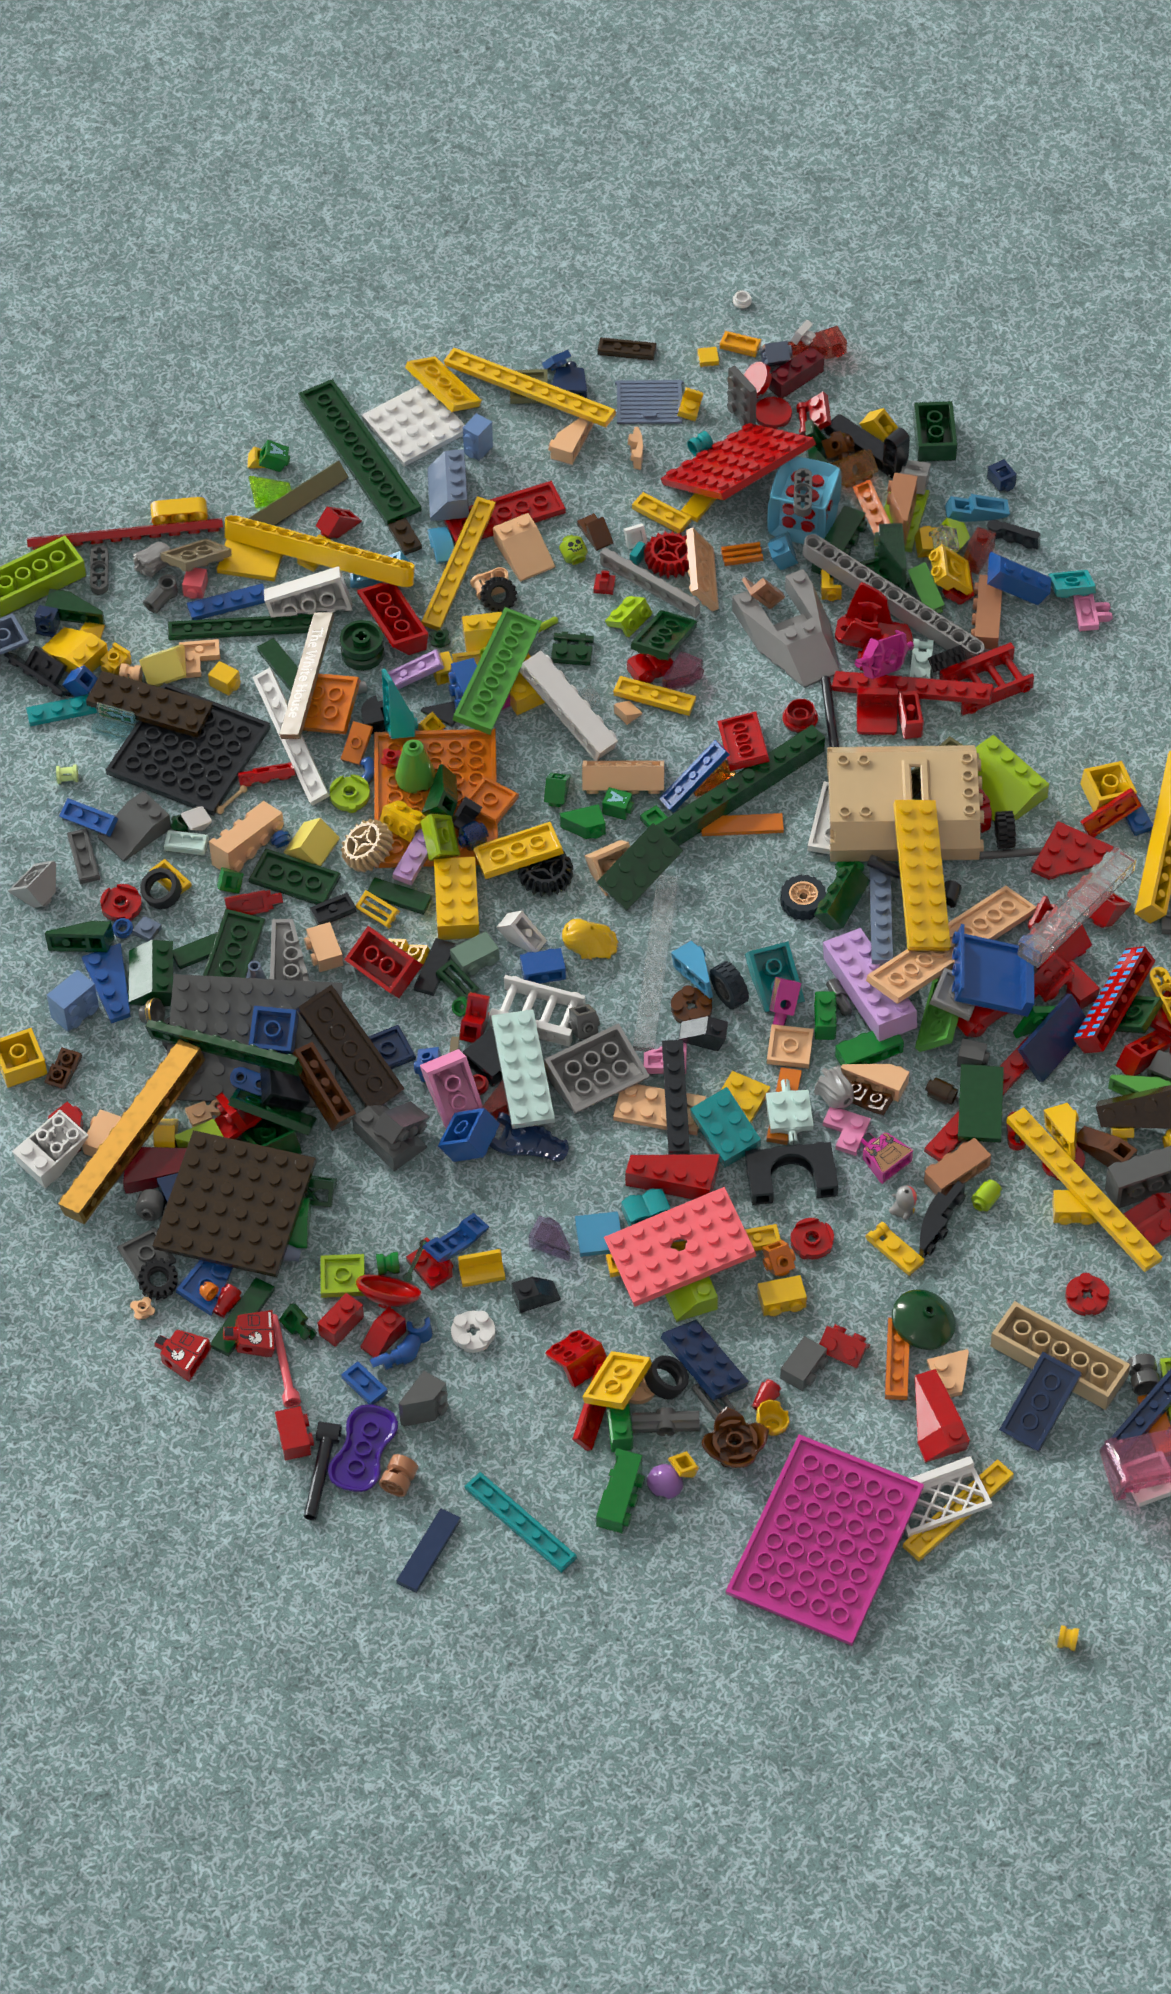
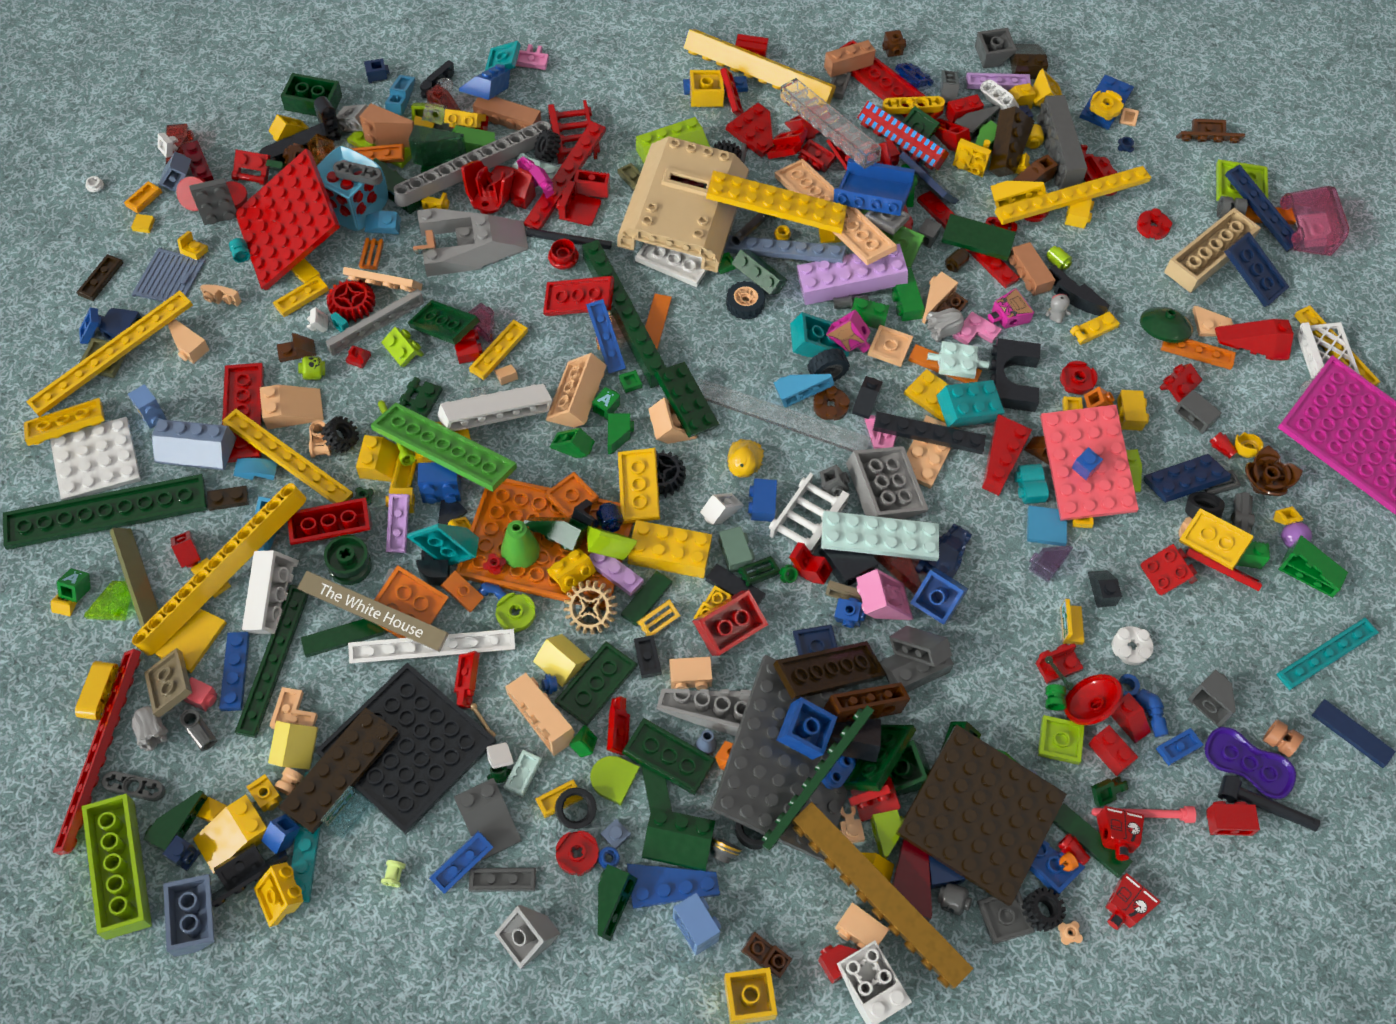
camera: 80 degrees left, 5 degrees up
(24, 699) = (278, 893): none -> yellow plate
(201, 914) = (613, 777): none -> lime tile
(224, 678) = (333, 692): yellow brick -> none
(456, 1240) = (1029, 625): blue slope -> none
(664, 1232) = (1087, 463): none -> blue brick
(1000, 542) = (447, 84): none -> clear wheel
(1051, 888) = (787, 143): none -> red slope
(1102, 1082) = (972, 157): none -> yellow plate

